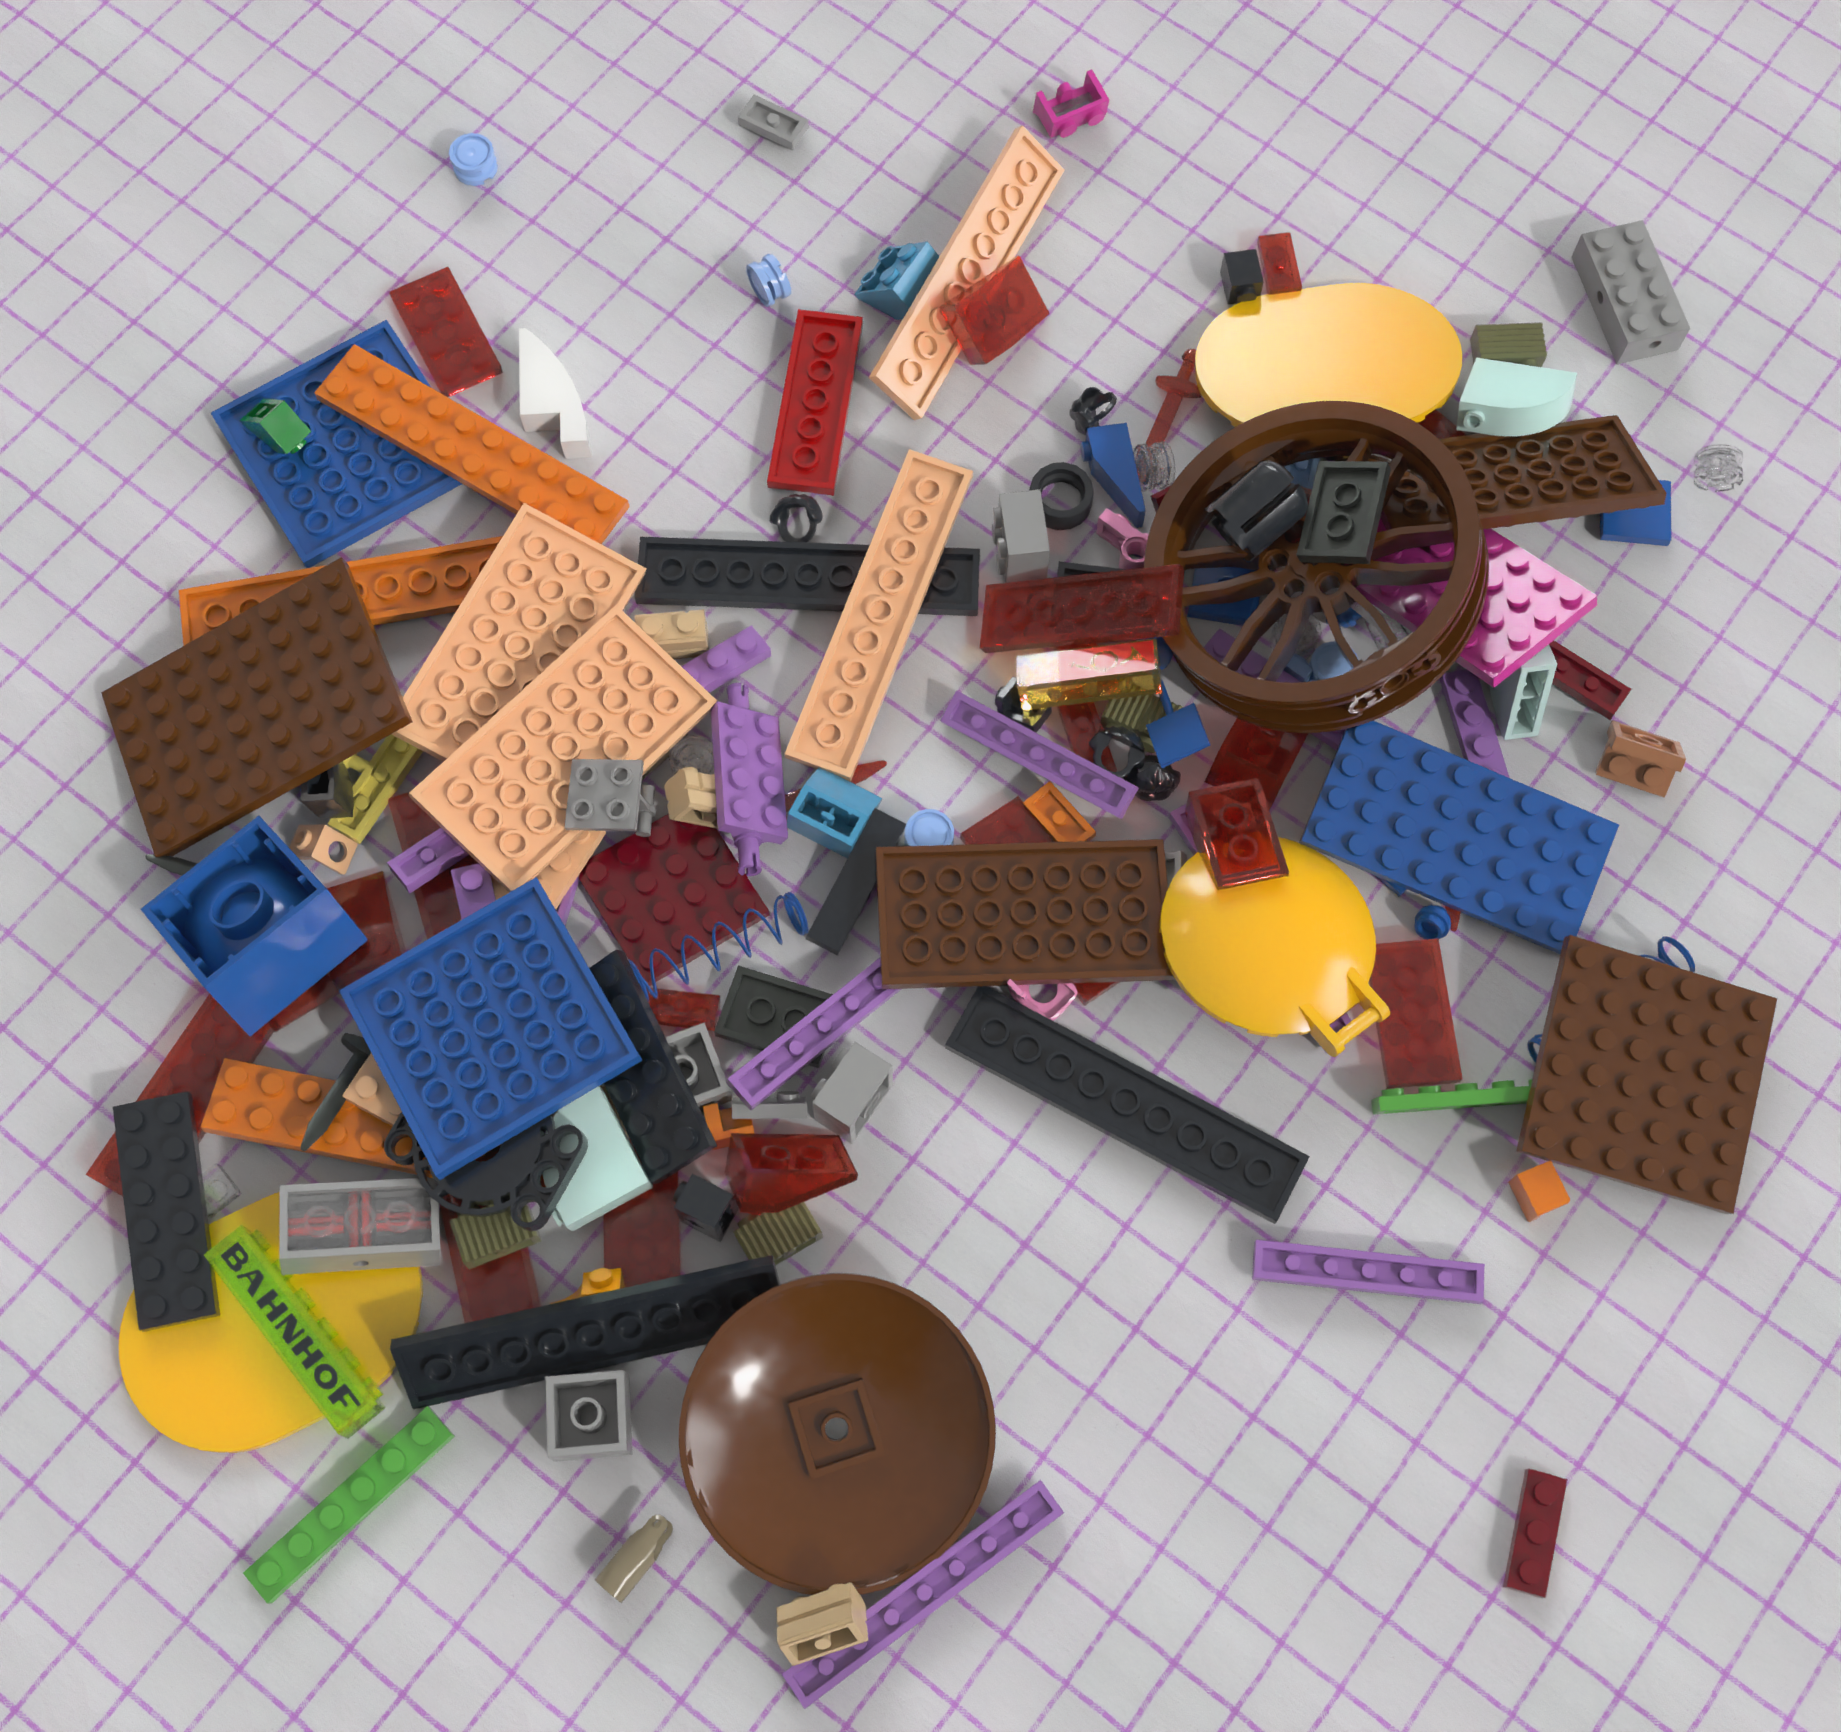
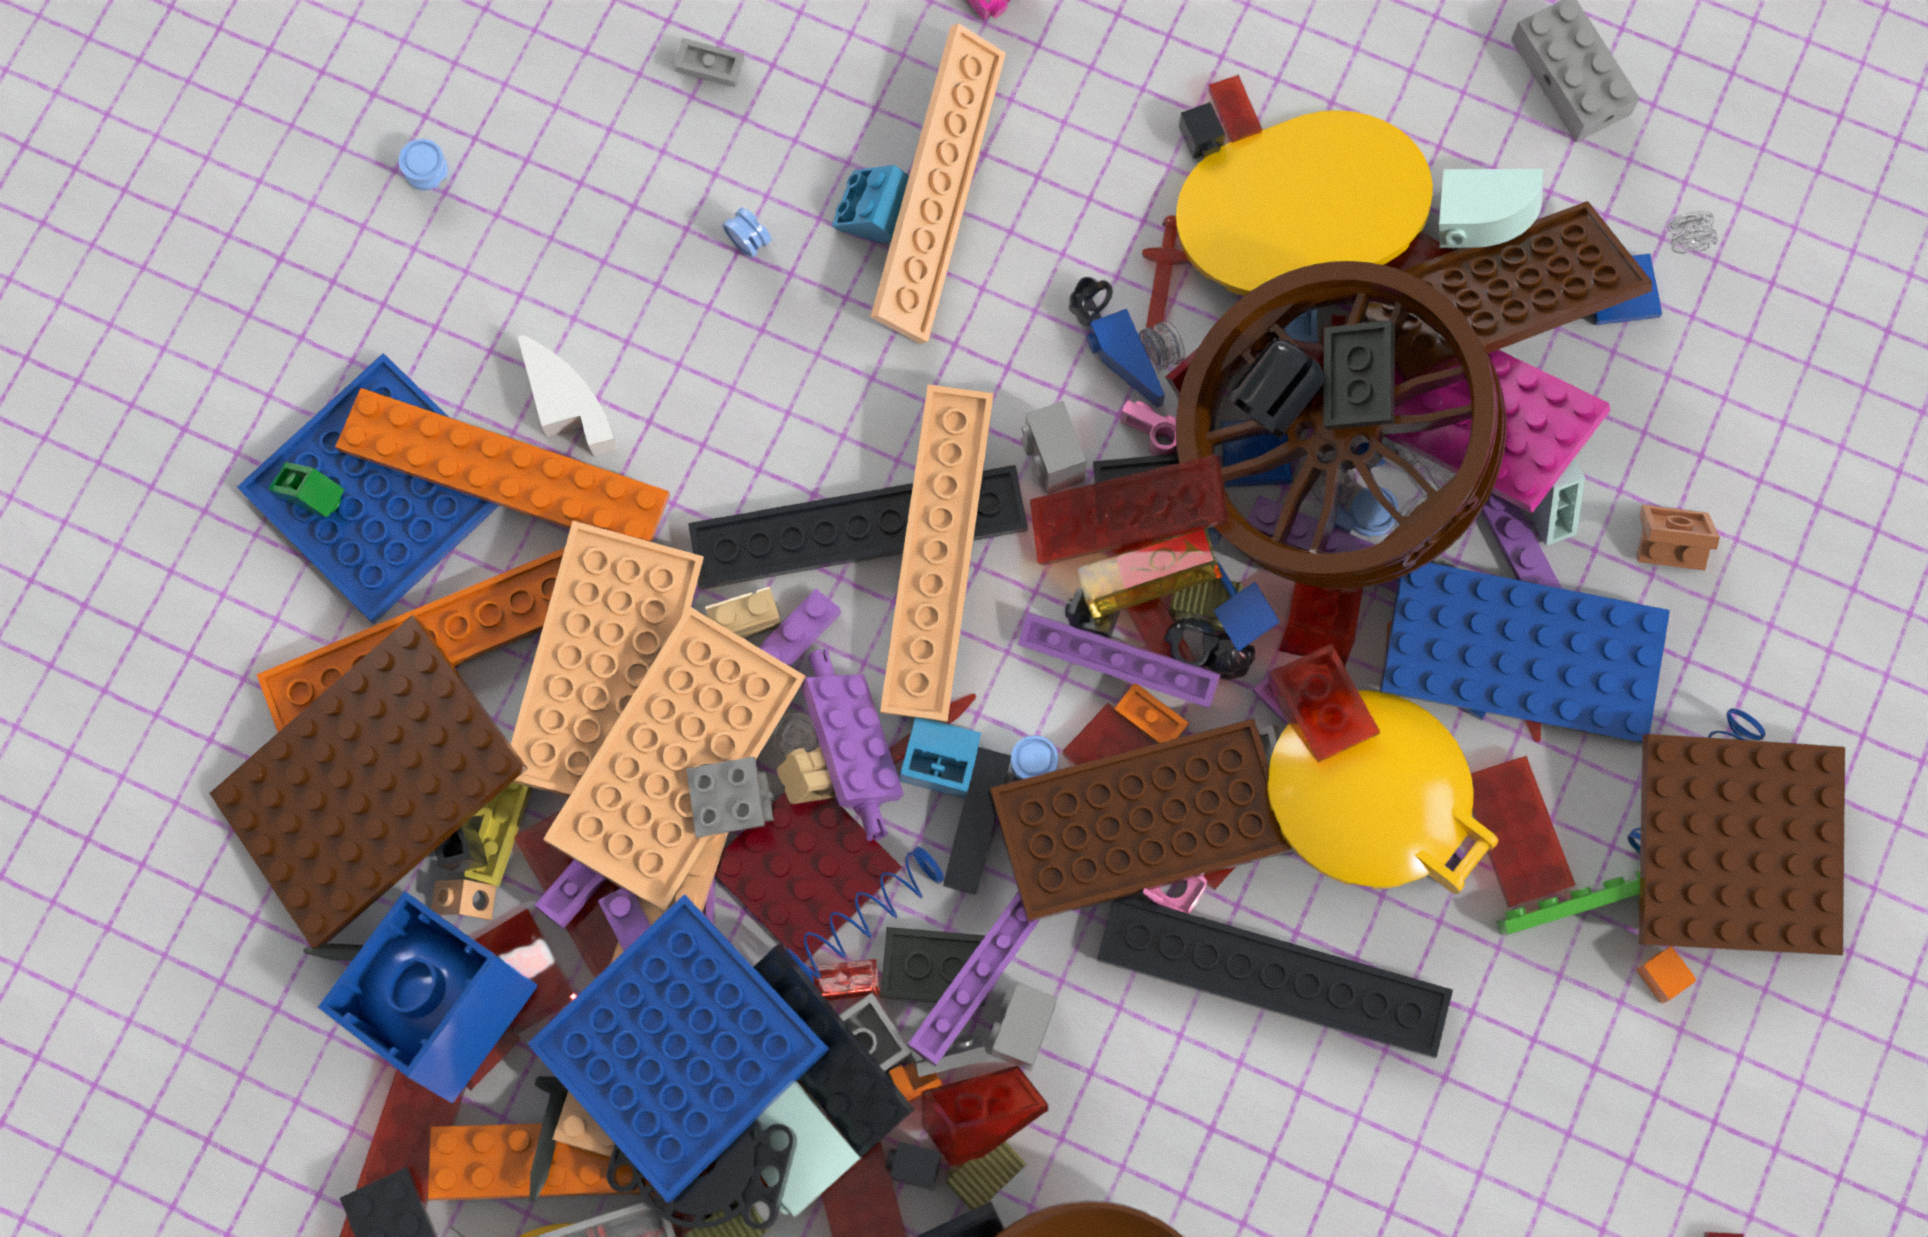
camera: 10 degrees left, 5 degrees up
(445, 332) = (443, 351): clear red plate -> none
(780, 515) = (816, 469): black piece -> none
(815, 402) = (822, 347): red plate -> none
(995, 312) = (975, 221): clear red slope -> none
(1068, 474) = (1082, 369): black tyre -> none
(1368, 1271) = (1527, 1084): medium lavender plate -> none
(1432, 922) = (1517, 740): blue plate -> none
(1510, 343) = (1472, 148): olive brick -> none
(1587, 682) = (1614, 474): dark red plate -> none

